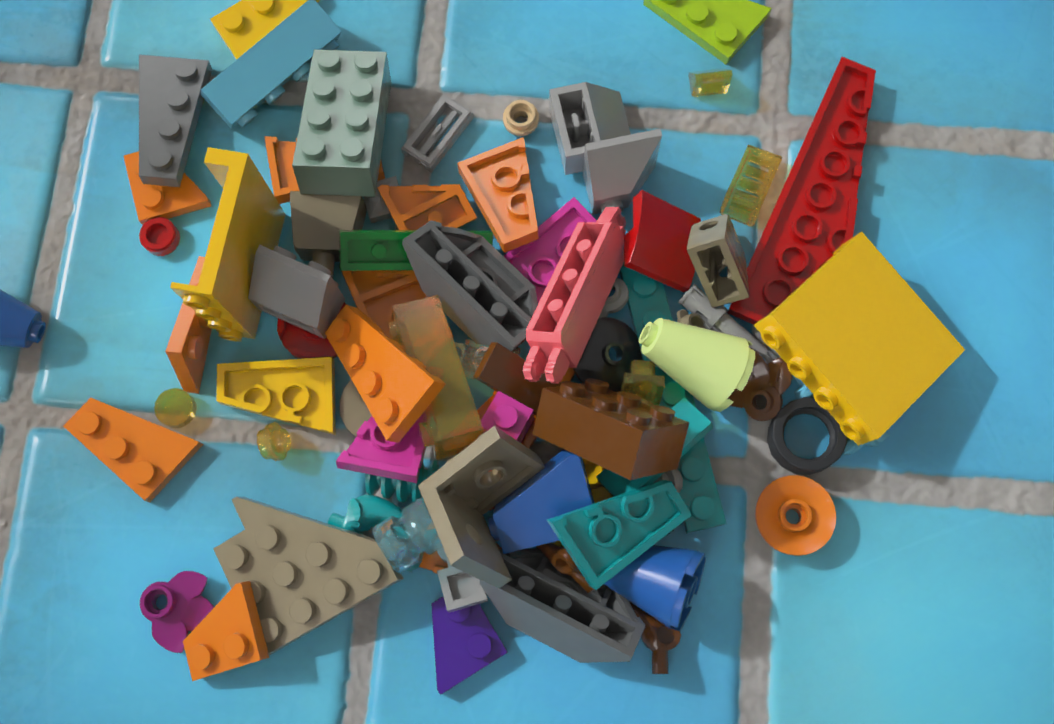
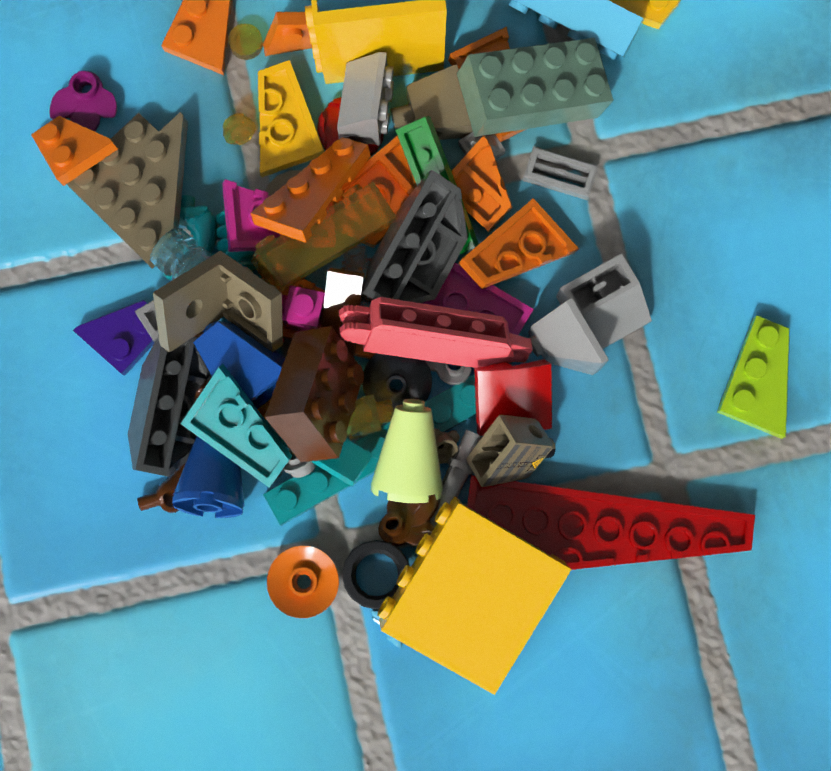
camera: 70 degrees right, 5 degrees up
(517, 109) = (603, 233): tan plate -> none
(709, 82) = (691, 399): clear yellow slope -> none
(742, 205) = (572, 458): clear yellow slope -> none

